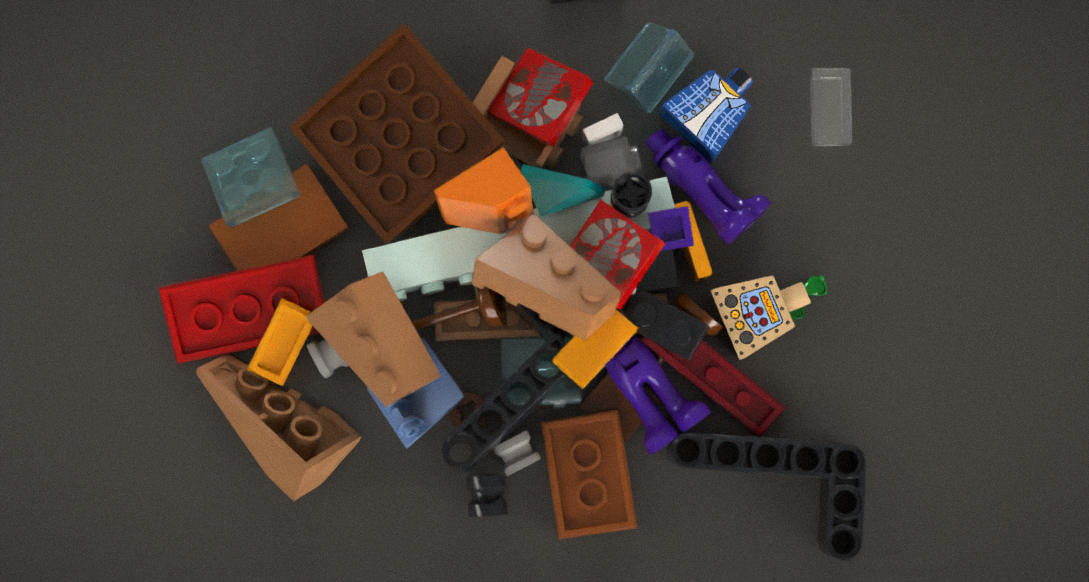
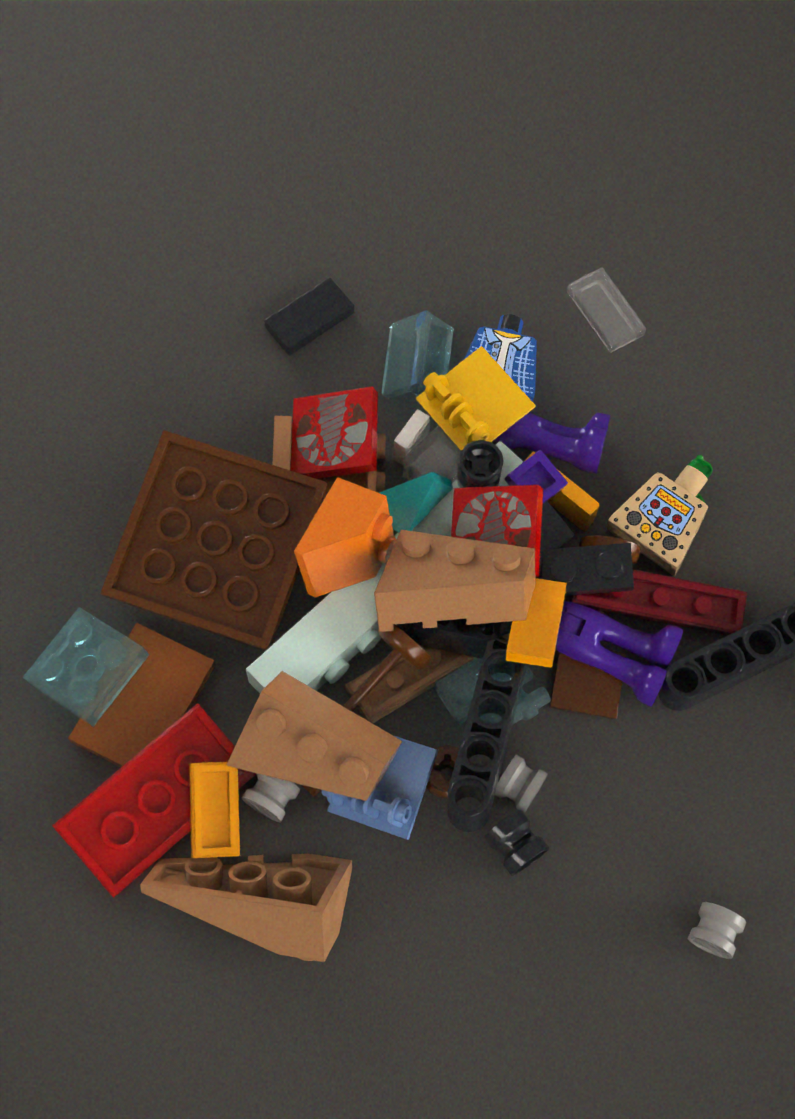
camera: 30 degrees left, 15 degrees down
(589, 474) = (603, 765): dark orange tile -> none
(664, 133) = (474, 400): none -> yellow hinge

